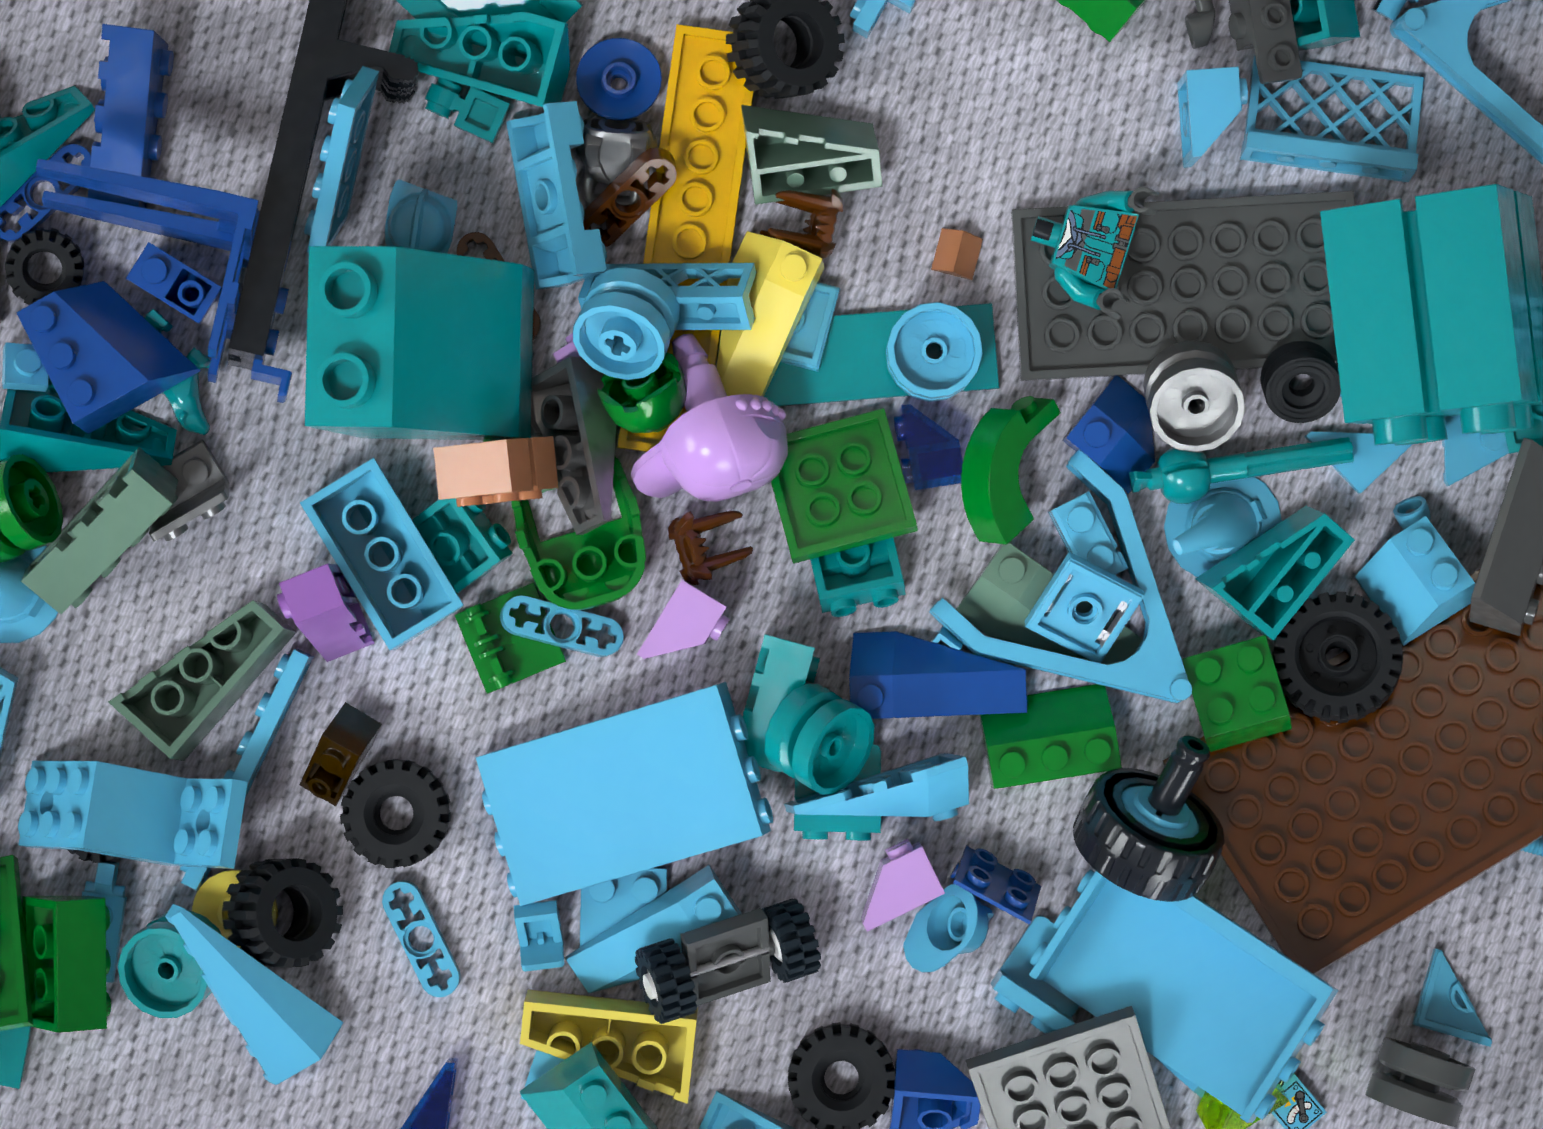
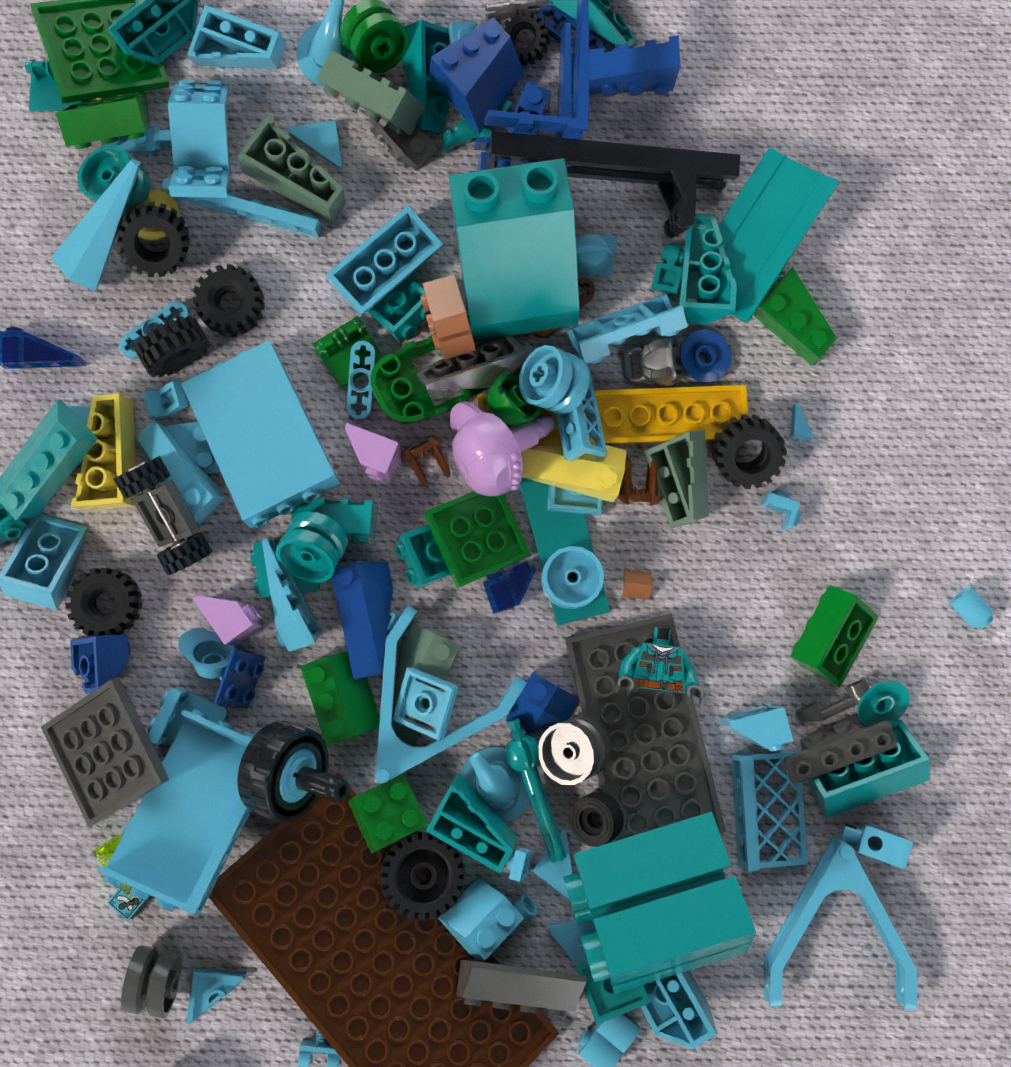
camera: 75 degrees right, 5 degrees down
(152, 624) = (321, 139): none -> medium azure tile
(325, 611) = (343, 228): medium lavender wedge -> none
(340, 753) = (261, 260): dark brown slope -> none
(342, 158) = (624, 189): medium azure plate -> none
(462, 909) = (172, 346): none -> black tyre
(631, 180) = (644, 372): reddish brown beam -> none
(992, 468) = (506, 628): green arch -> none
(1087, 533) = (473, 698): medium azure brick -> none
(1346, 508) = (520, 863): none -> medium azure plate

